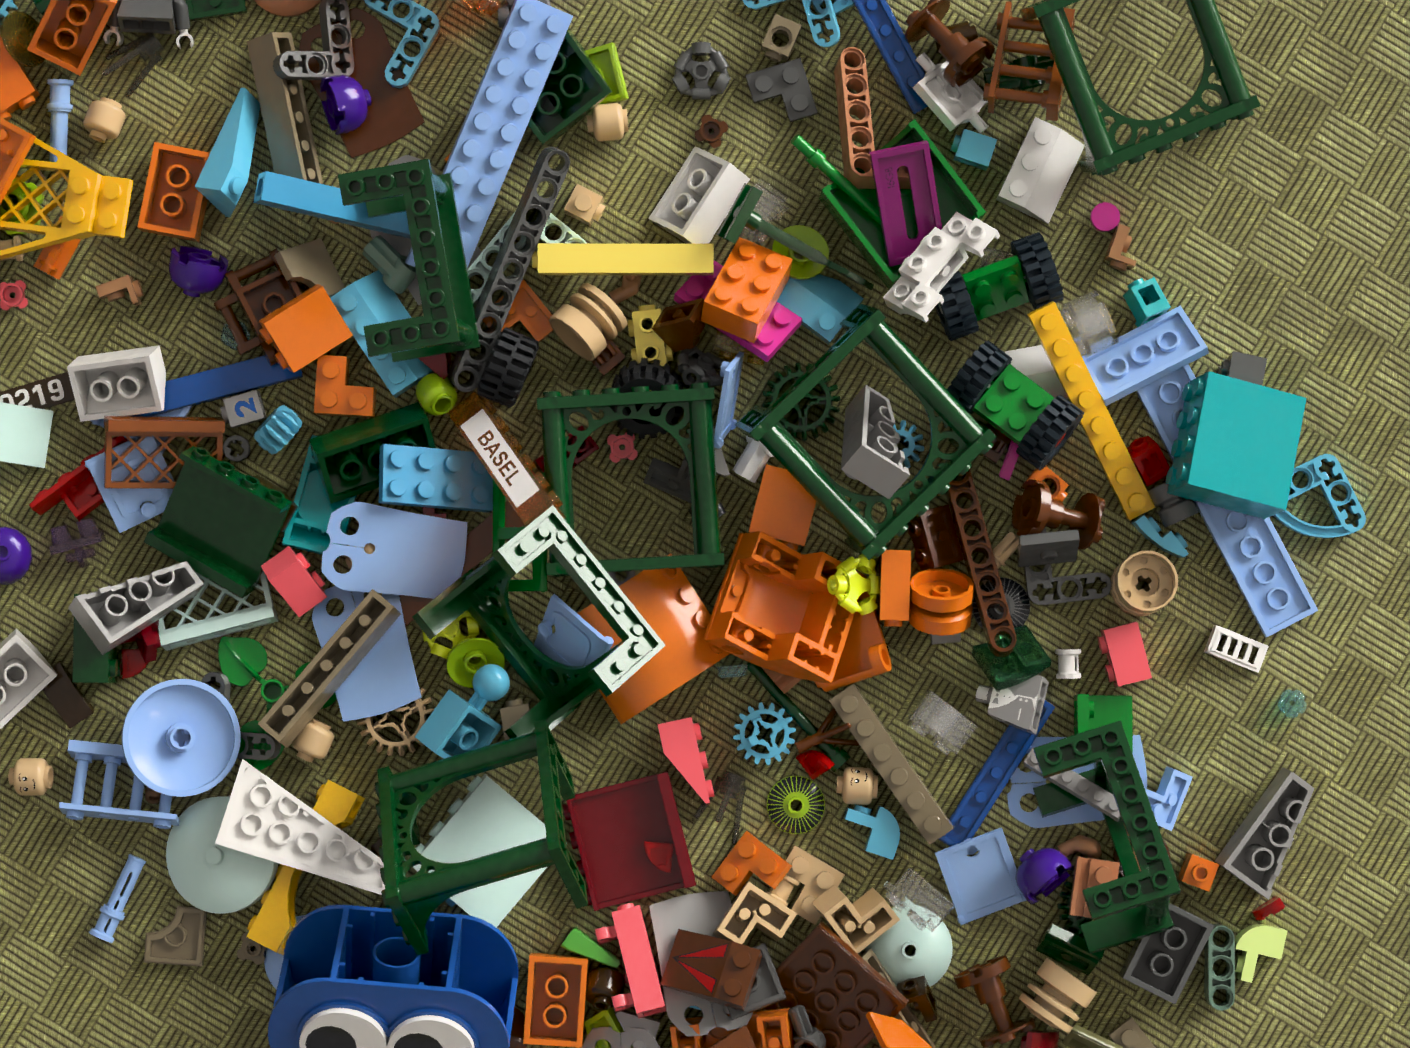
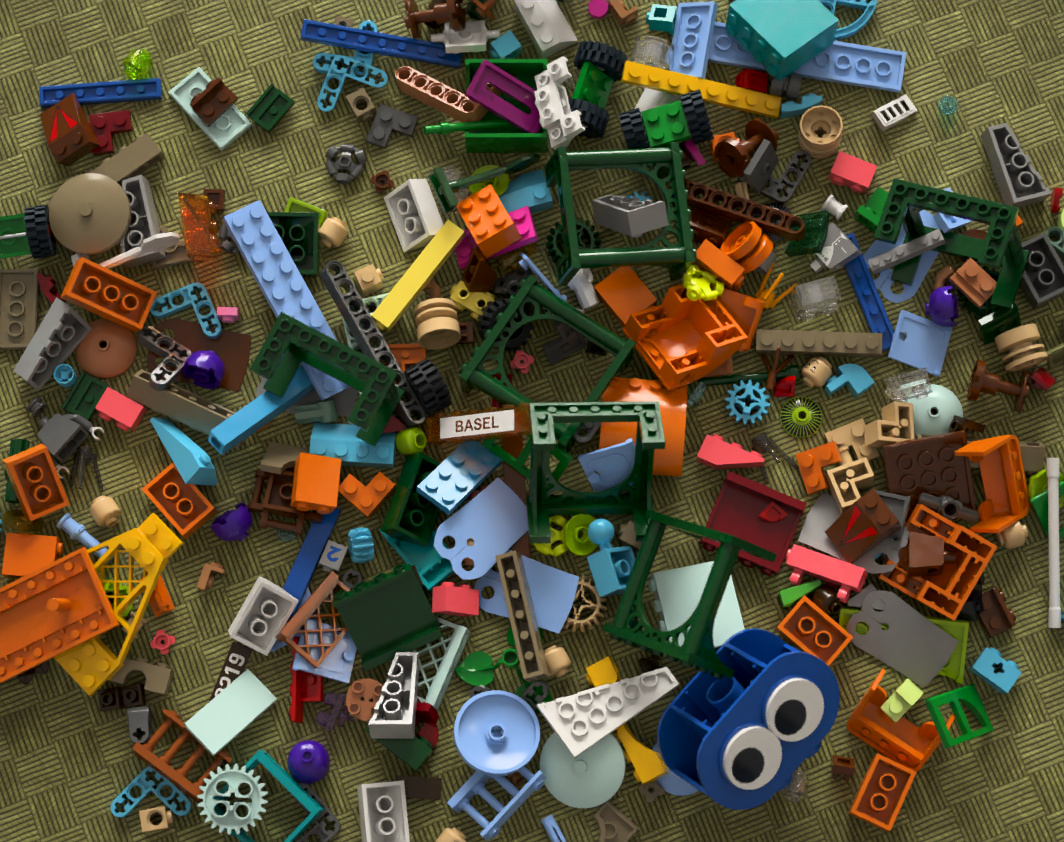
camera: 45 degrees left, 10 degrees down
(126, 557) = (369, 690): none -> nougat plate
(228, 45) = (120, 409): none -> coral brick
(425, 79) = (228, 314): none -> bright pink plate
(904, 665) = (767, 295): none -> light orange plant

